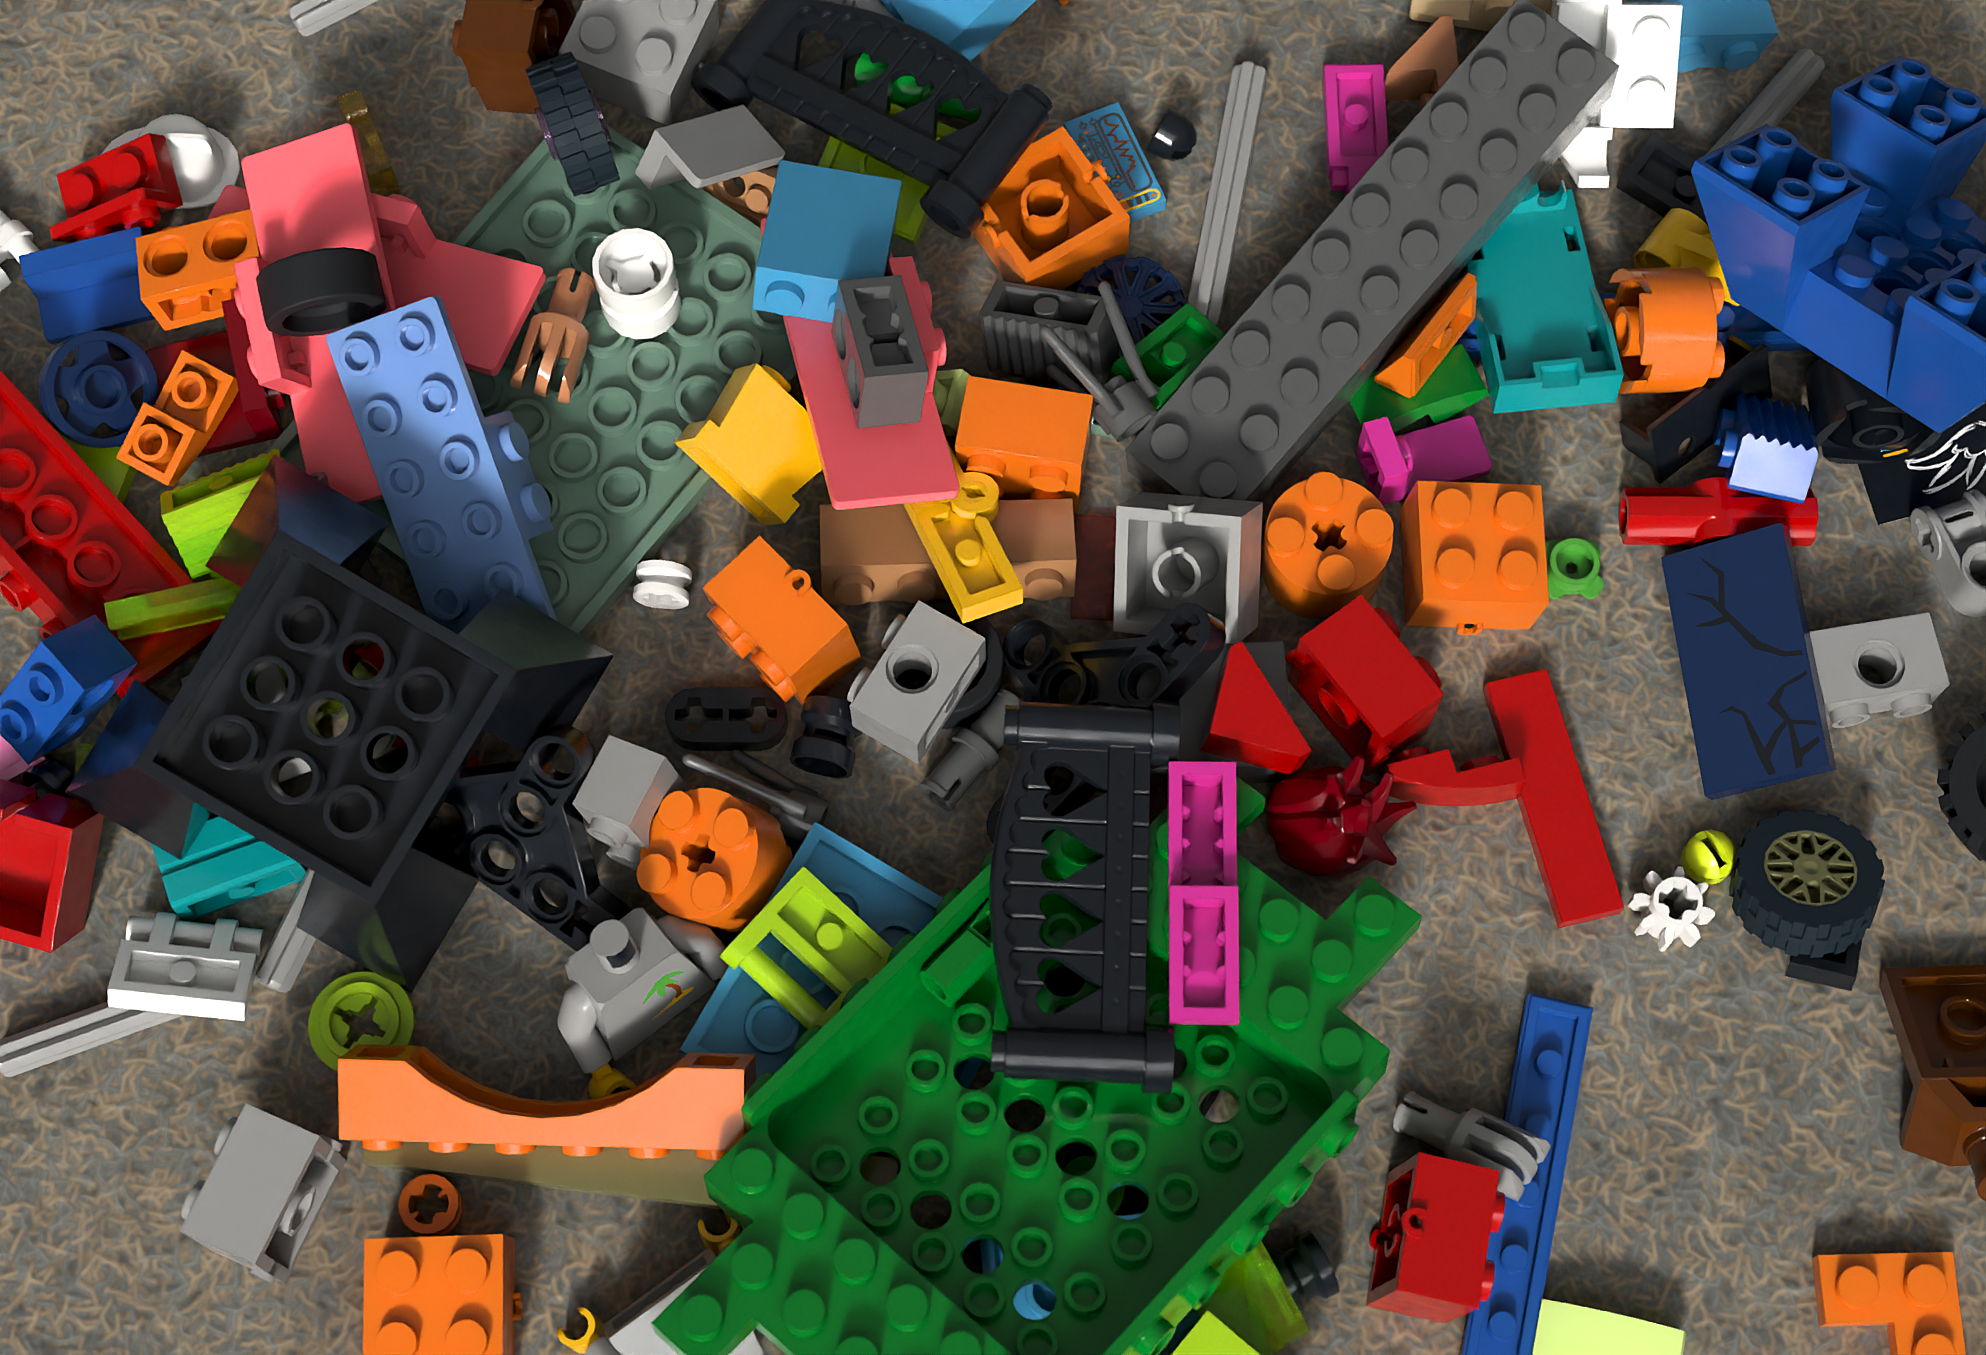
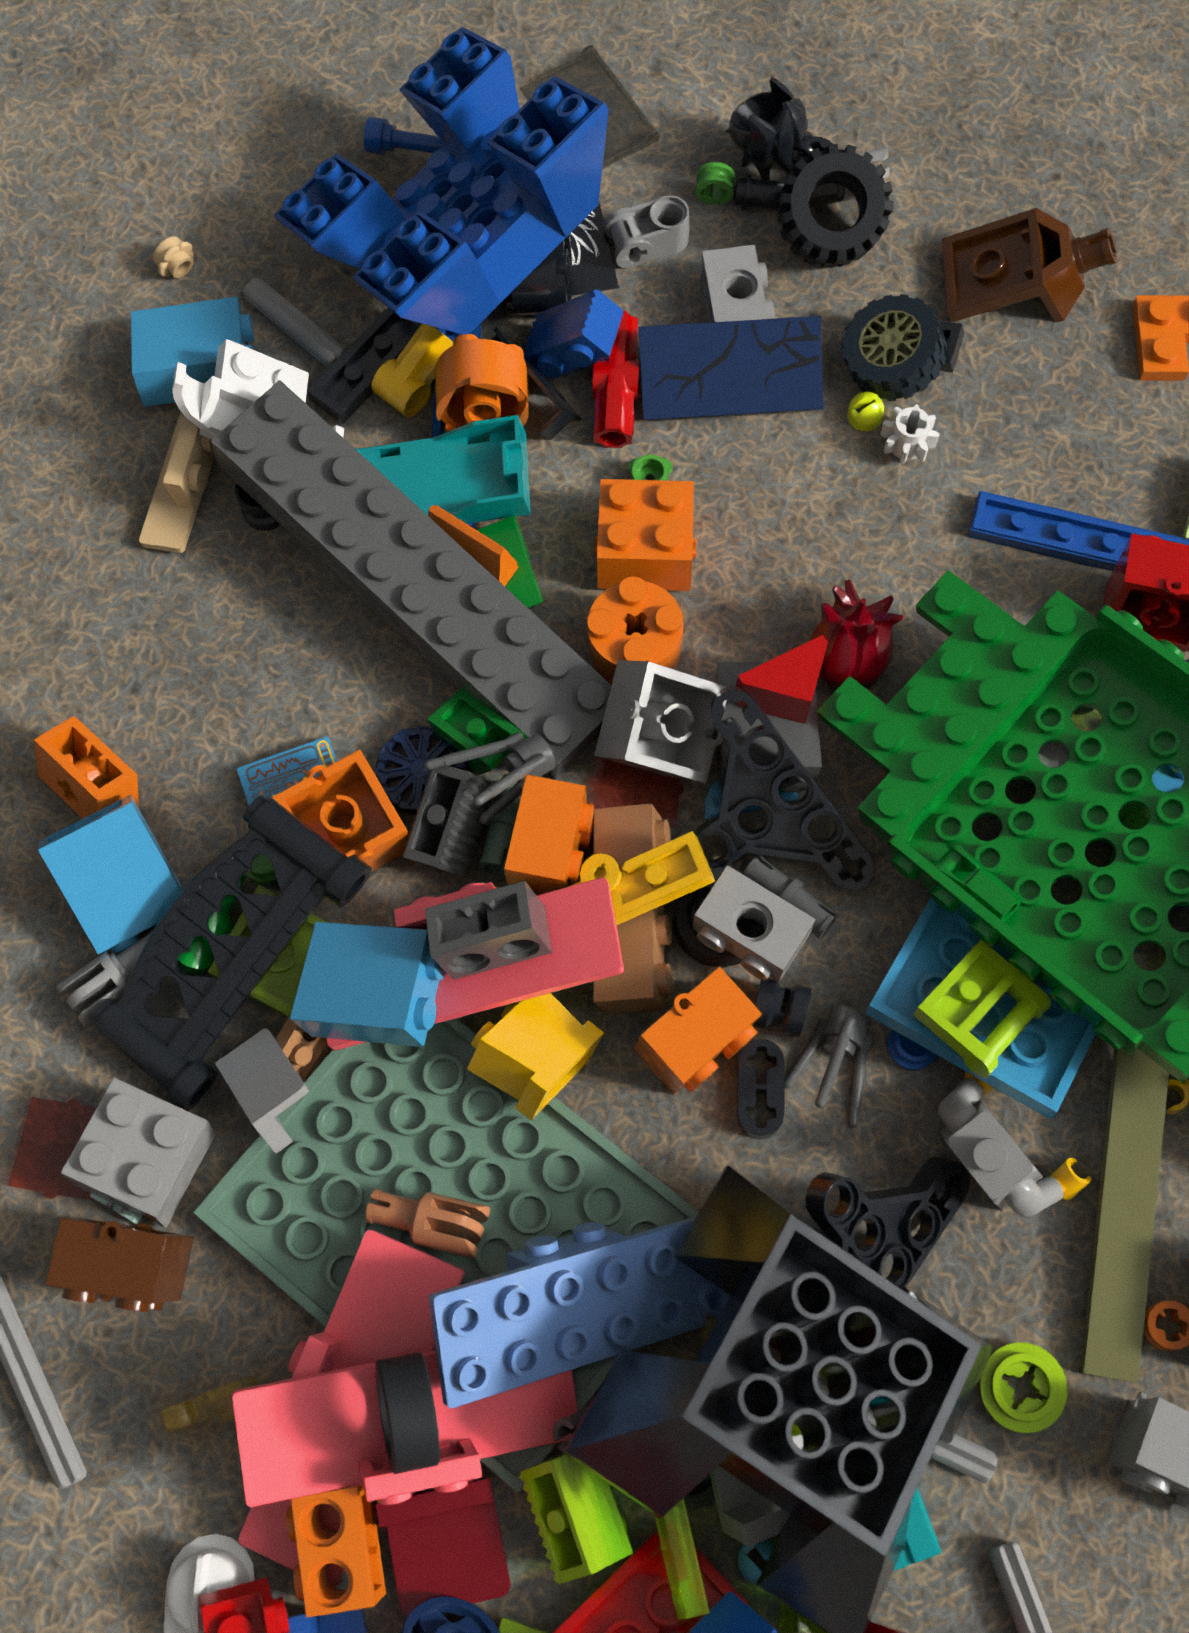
camera: 85 degrees left, 0 degrees up
(182, 421) = (478, 1573): orange slope -> none
(185, 967) = (1004, 1539): white plate -> none
(415, 1097) = (1103, 1326): orange arch -> none
(572, 123) = (234, 1199): black wheel -> none
(624, 796) = (853, 1151): light grey brick -> none
(637, 283) = (387, 1147): white wheel -> none
(662, 584) = (646, 1138): white bush -> none
(713, 858) = (906, 1115): orange brick -> none
(1106, 1031) = (1051, 782): black piece -> none
(1173, 137) = (271, 730): black hinge -> none
(1202, 893) = (941, 712): dark pink slope -> none
(1227, 190) = (322, 692): light grey axle -> none
(1353, 121) = (283, 595): dark pink hinge -> none
(1365, 683) = (754, 606): red brick -> none
(1424, 64) = (237, 532): nougat slope -> none
(1434, 781) = (815, 565): red slope -> none
(1435, 453) = (561, 570): dark pink bracket -> none
(1475, 1139) = (1083, 572): light grey arm -> none
(1554, 799) = (823, 505): red tile -> none

